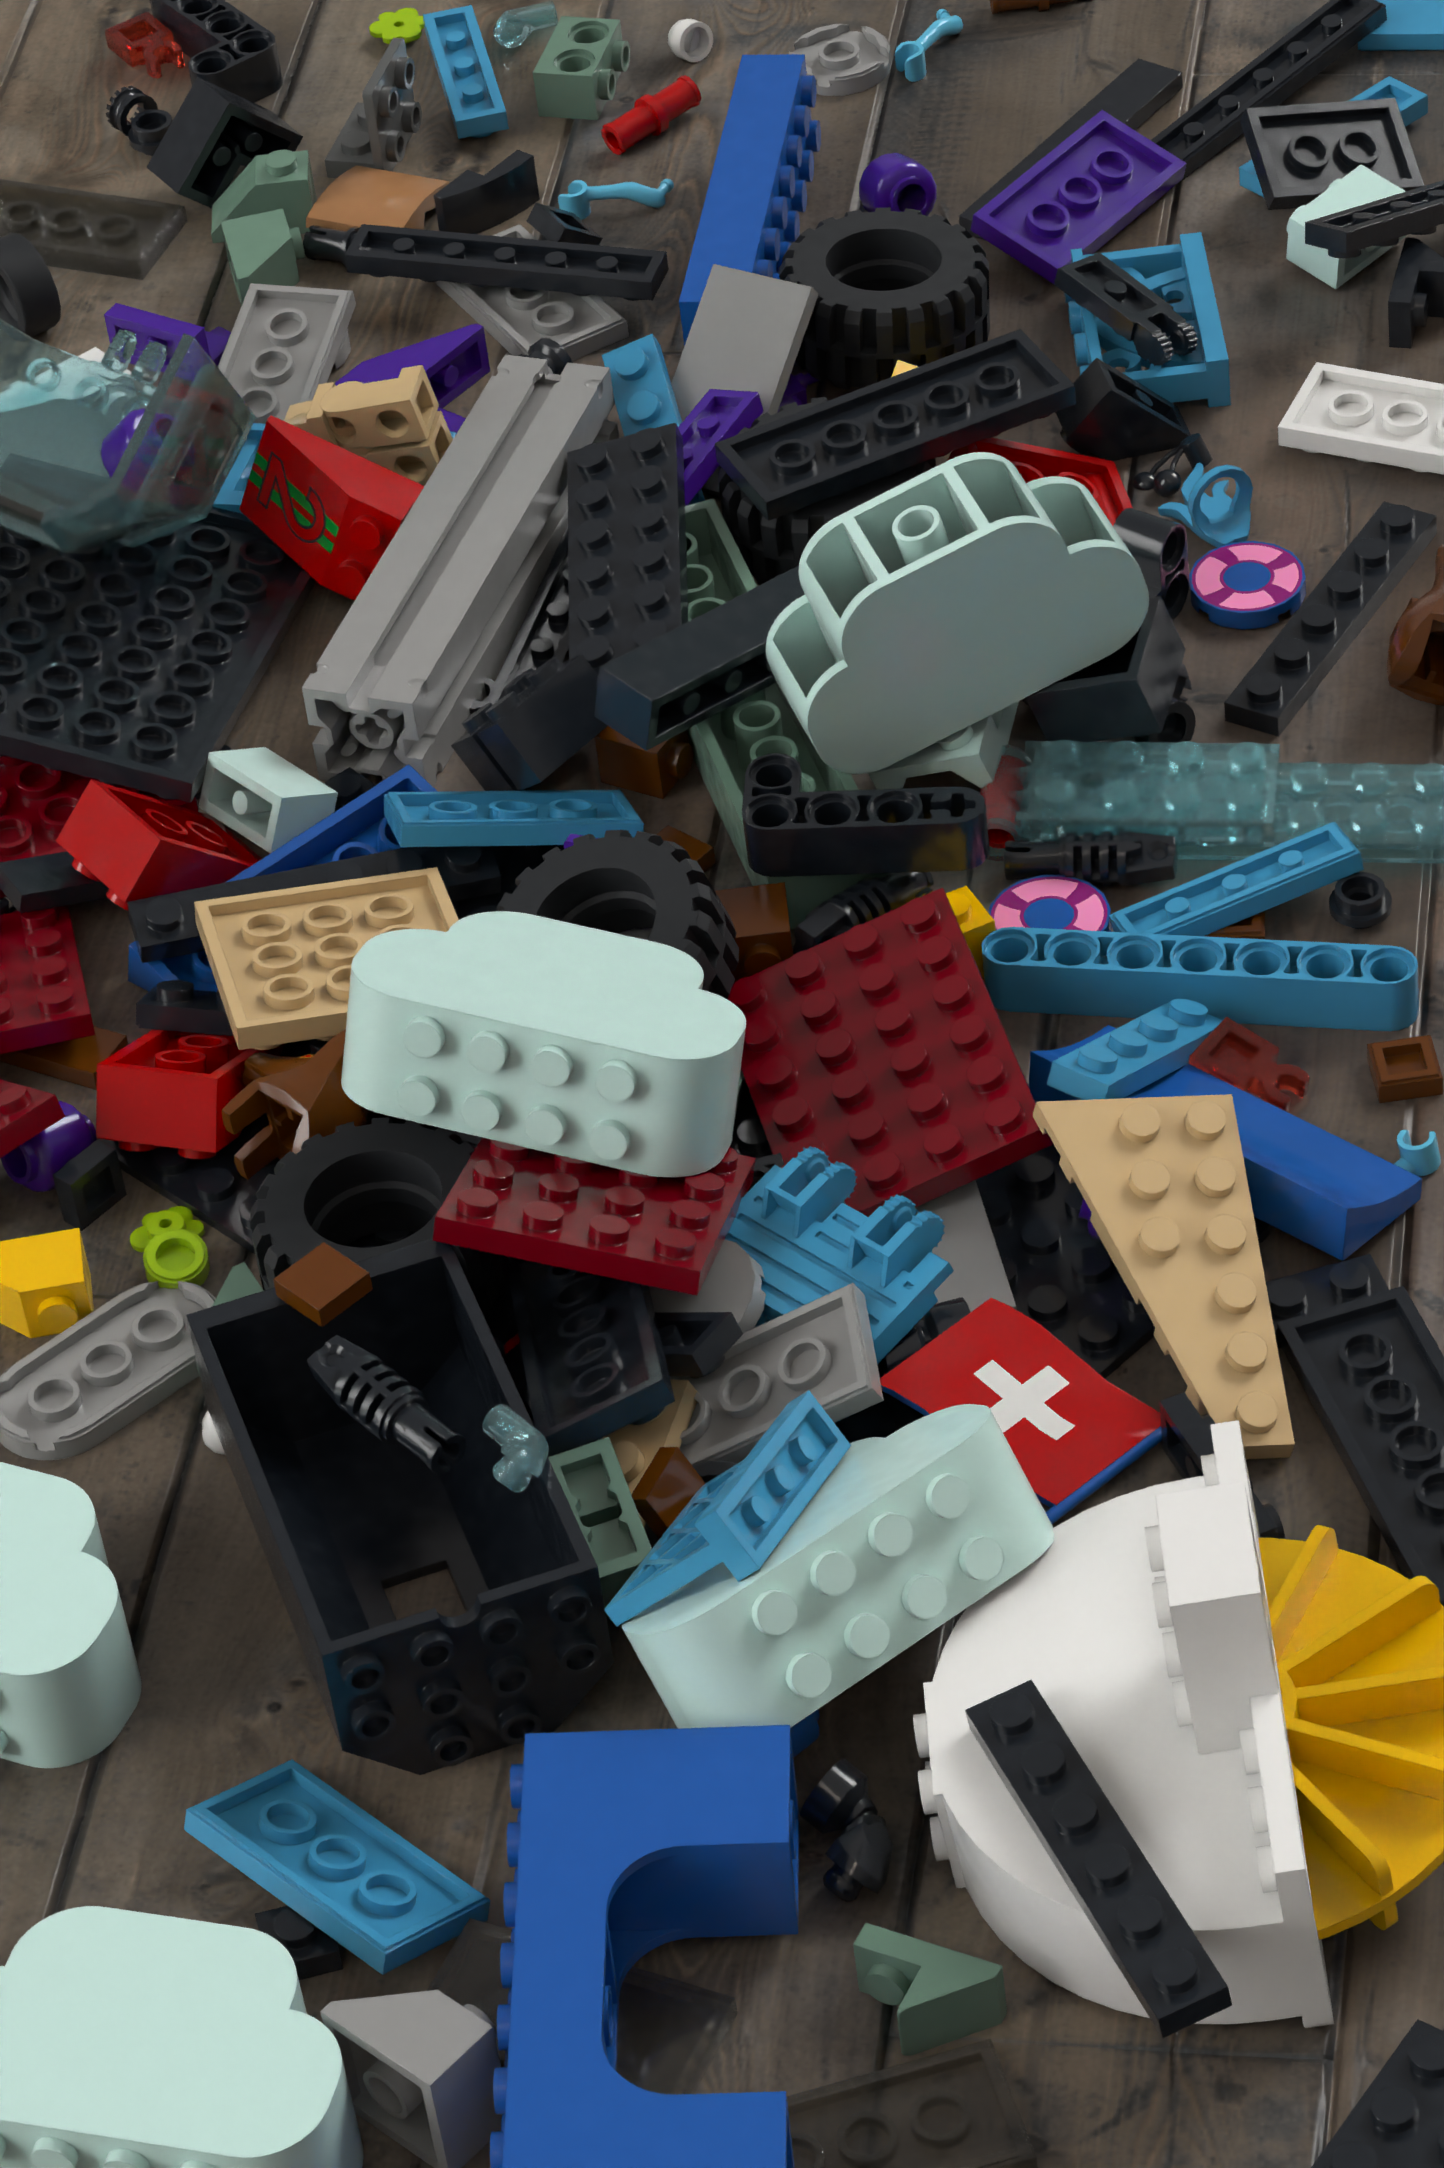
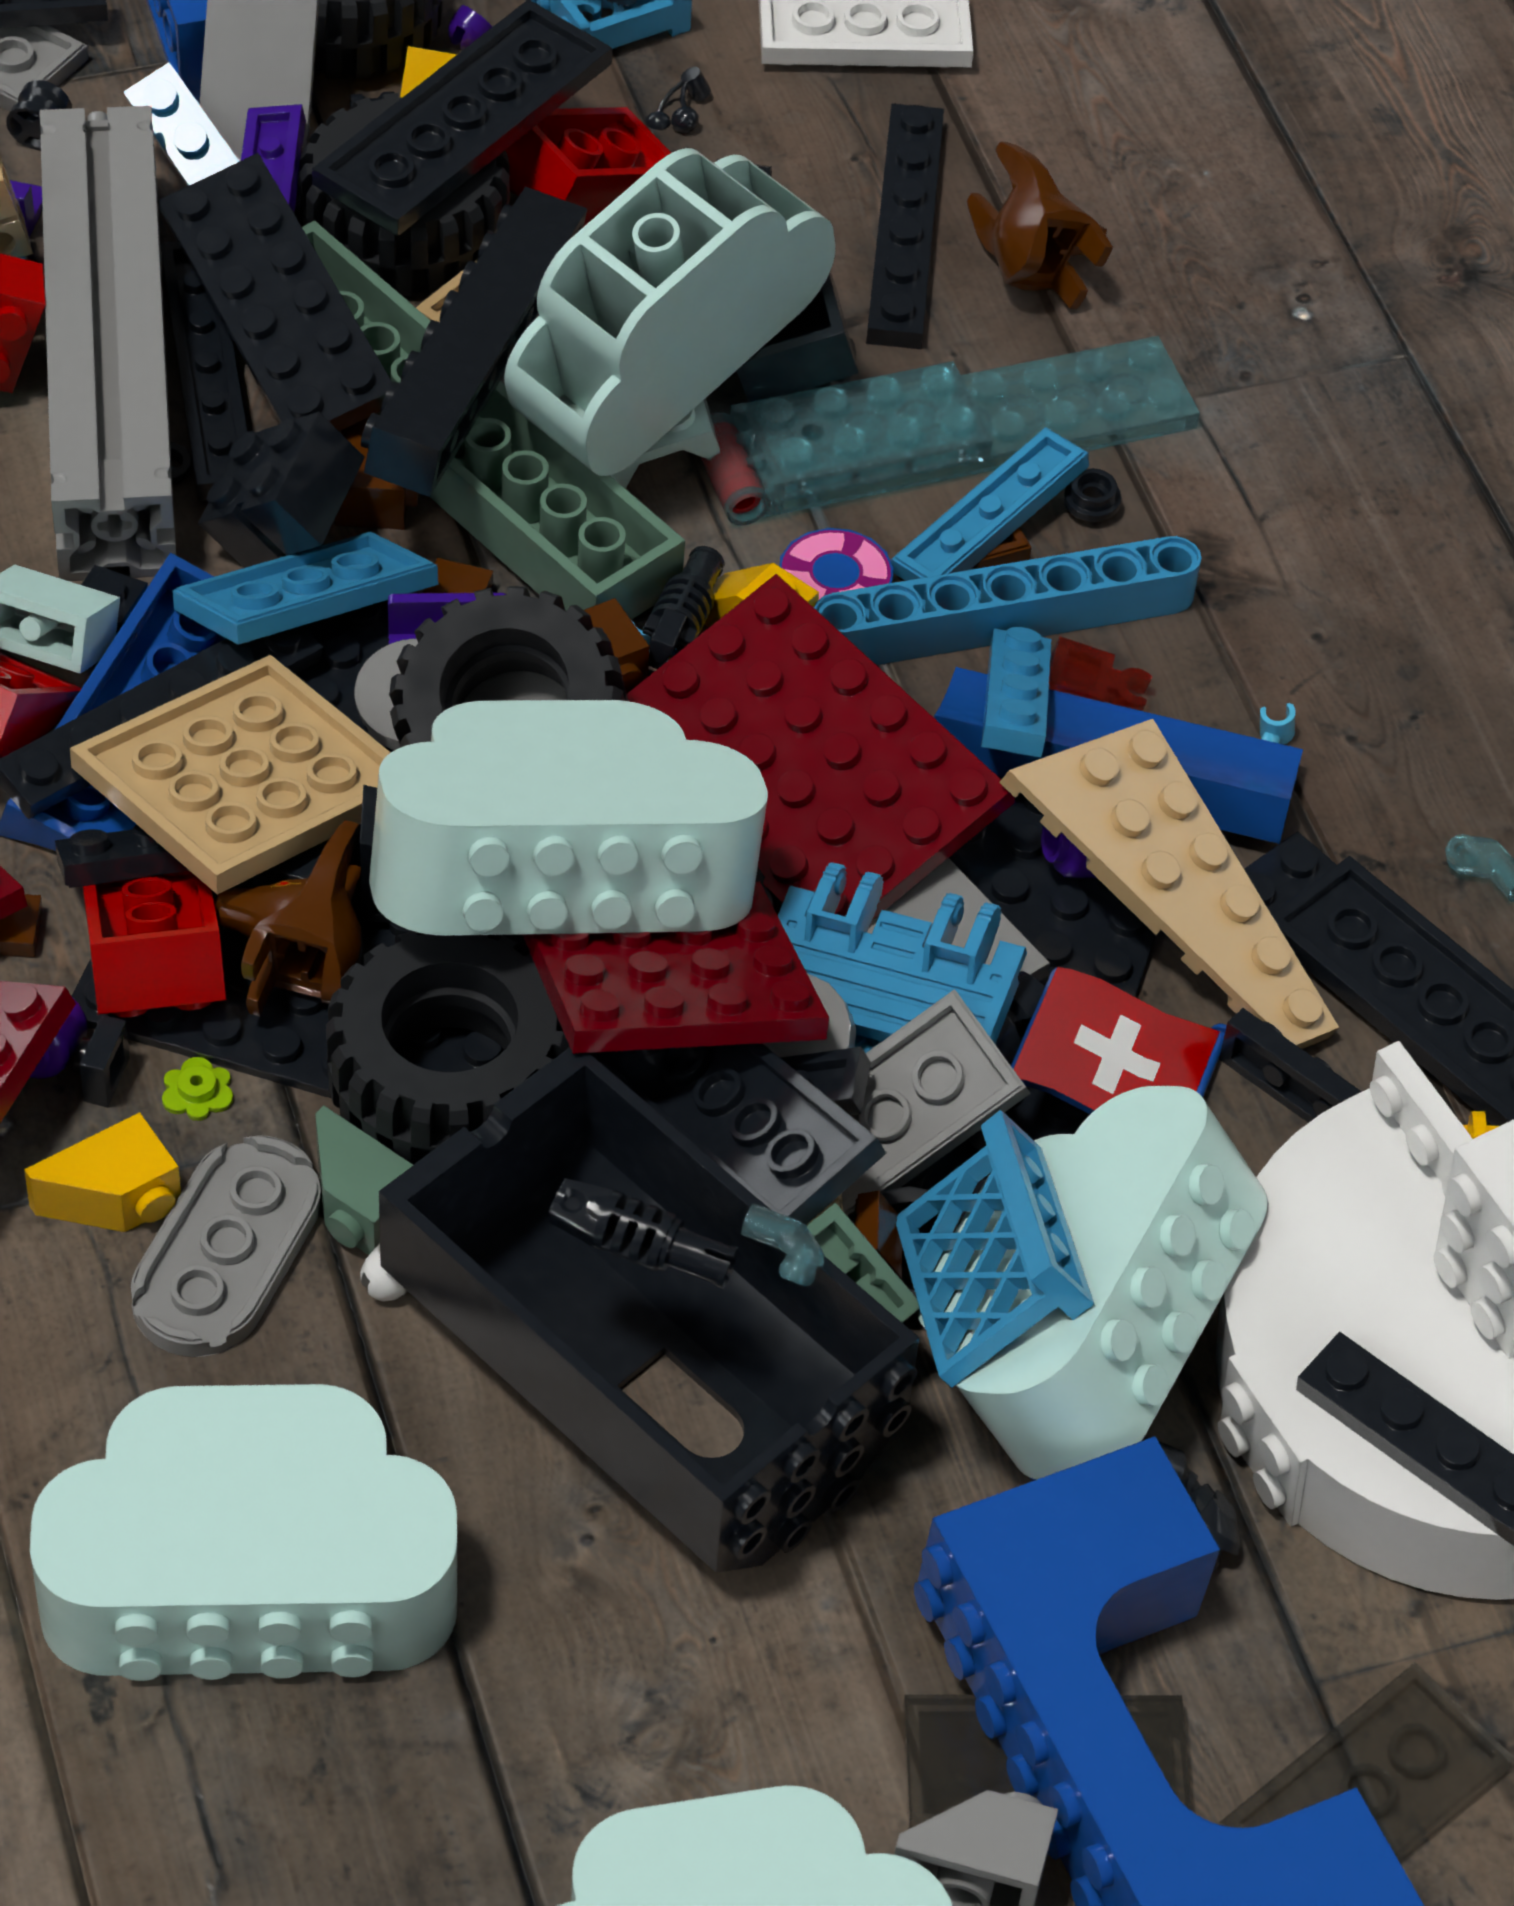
camera: 35 degrees left, 10 degrees up
(176, 1257) = (230, 1115): lime tile -> none
(309, 1946) = (757, 1760): black plate -> none
(323, 1284) = (500, 1126): reddish brown tile -> none
(336, 1866) = (758, 1683): dark azure tile -> none
(857, 829) = (659, 536): black beam -> none
(938, 1989) = (1354, 1627): sand green slope -> none
(1102, 858) = (844, 505): black hinge -> none
(1119, 416) = (634, 67): black slope -> none
(1218, 517) = (743, 137): dark azure piece -> none
(1247, 584) = (832, 194): tile -> none
(1405, 1069) = (1217, 647): reddish brown tile -> none

